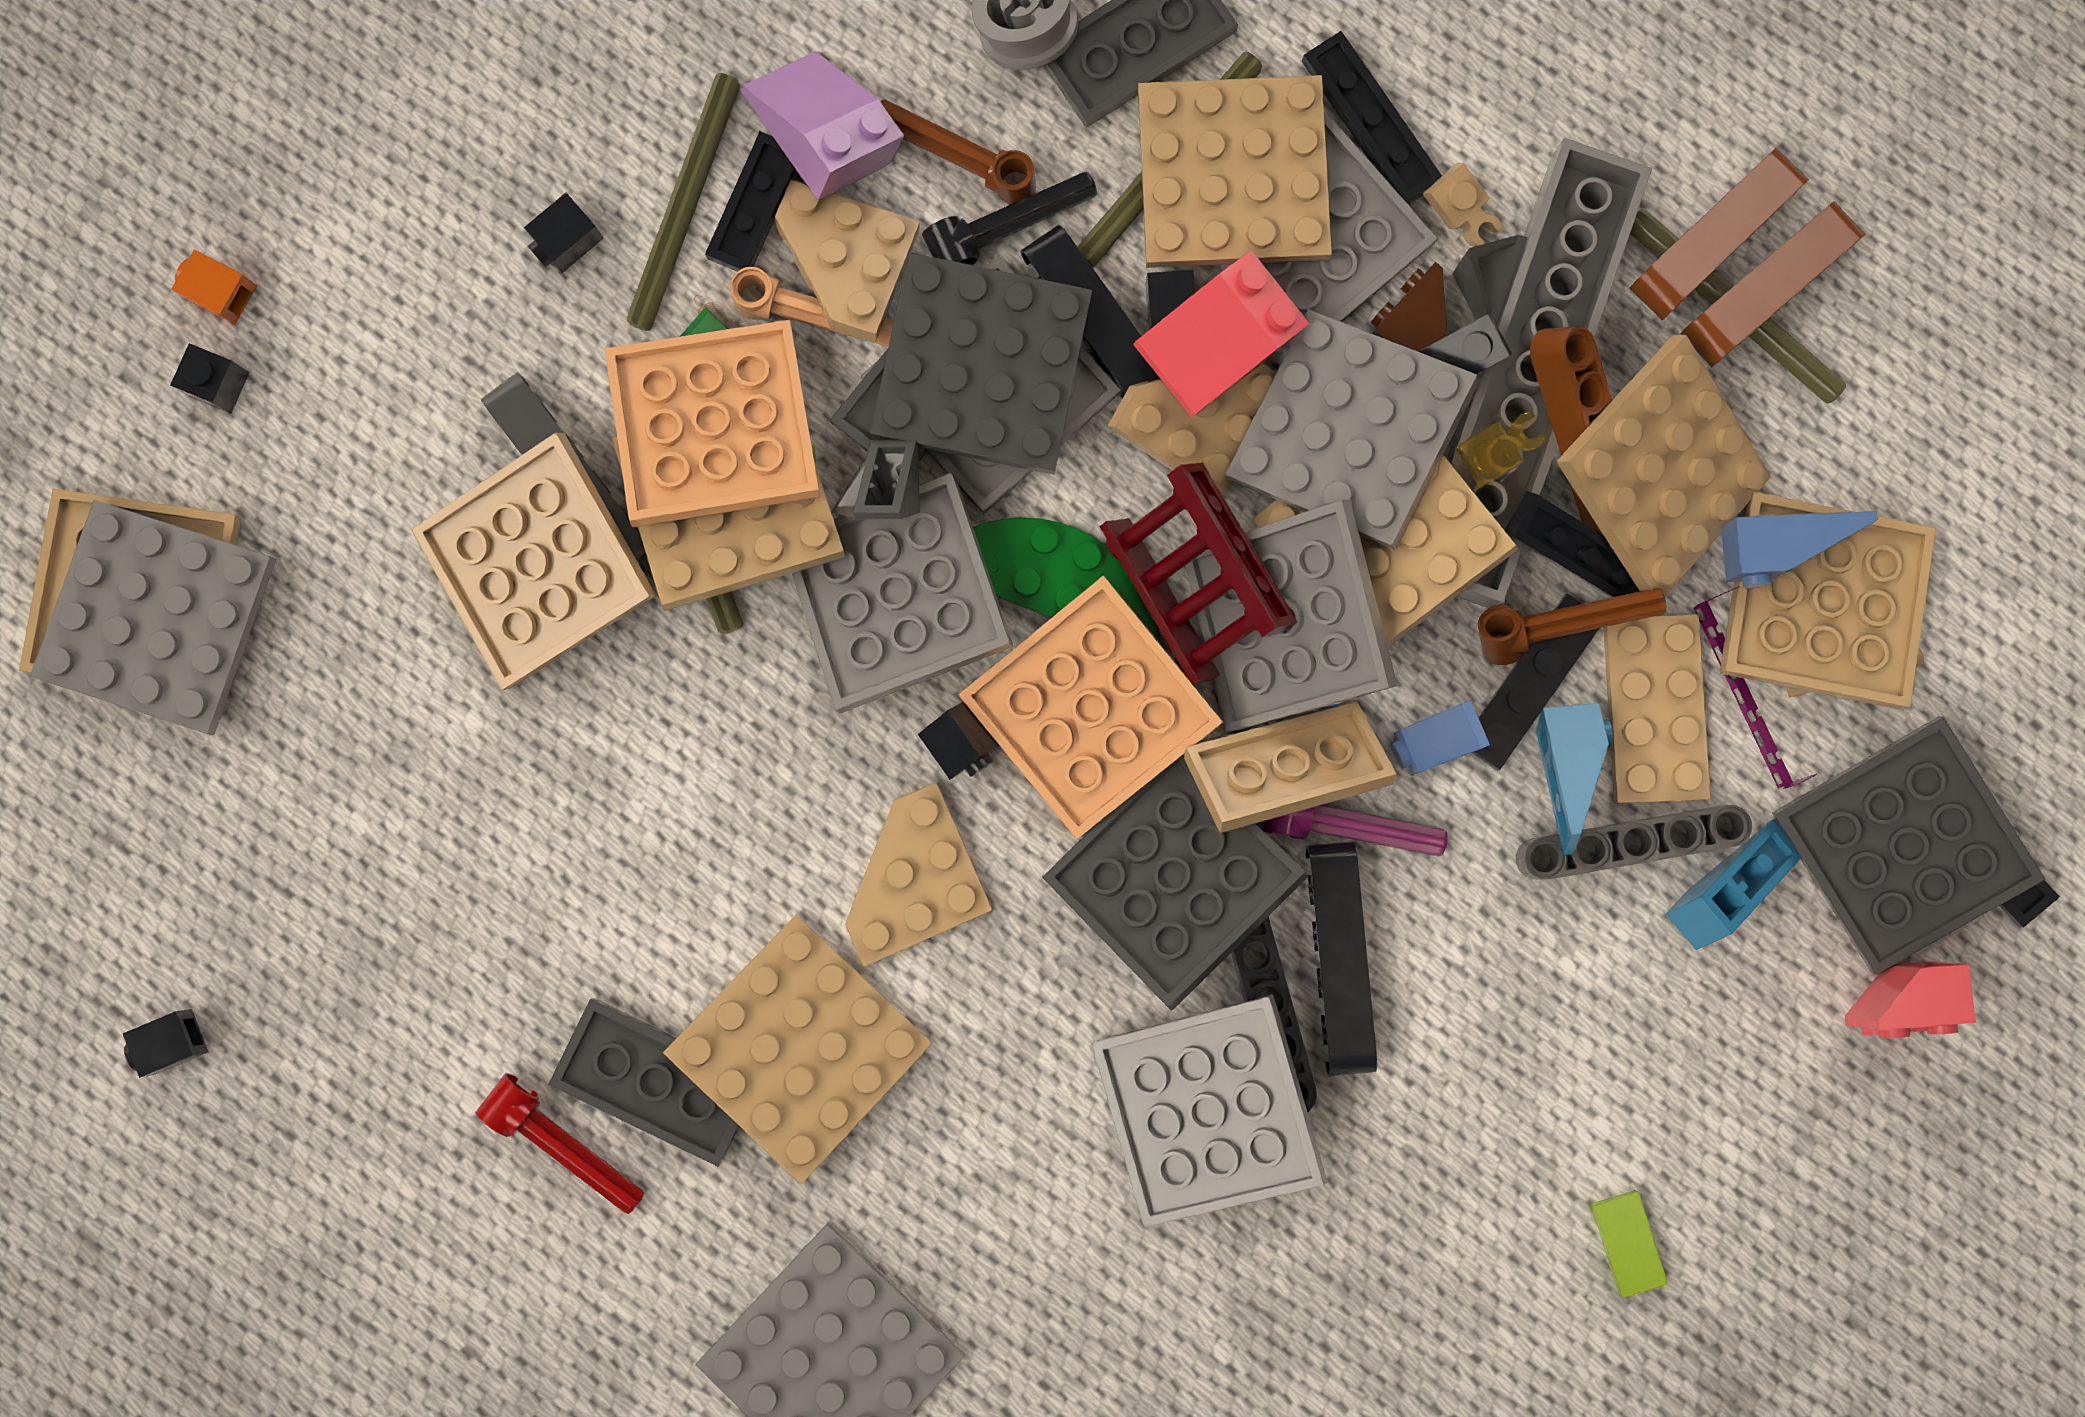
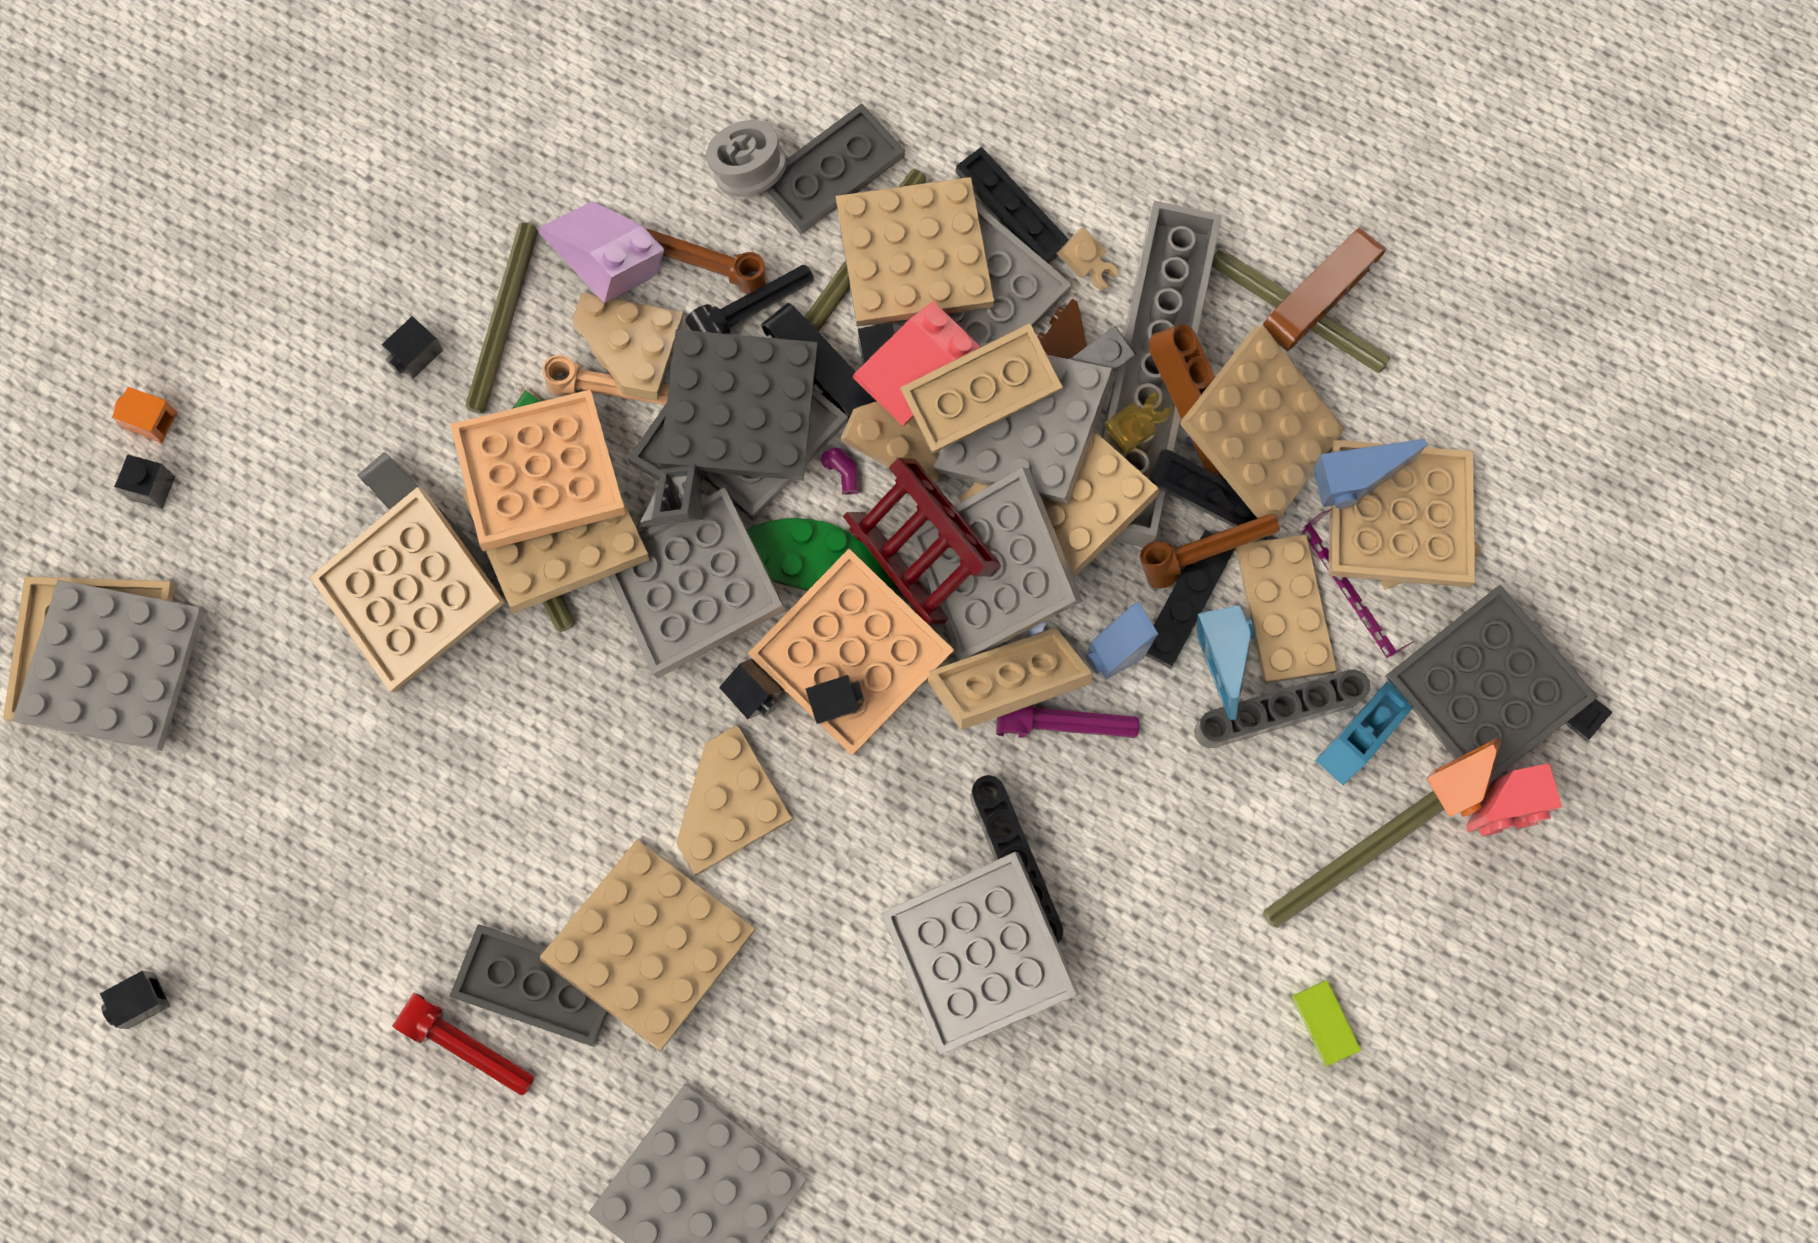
camera: 10 degrees left, 10 degrees down
(752, 206) = (554, 313): black plate -> none
(1063, 770) = (835, 699): none -> black brick
(1110, 455) = (846, 466): none -> magenta arm
(1172, 886) = (929, 778): dark grey plate -> none
(1301, 383) = (981, 388): none -> tan plate
(1343, 959) = (1071, 825): black beam -> none
(1487, 274) = (1112, 301): dark grey slope -> none
(1698, 1043) = (1353, 860): none -> olive axle
(1718, 234) = (1277, 258): beam -> none
(1855, 963) = (1465, 780): none -> slope

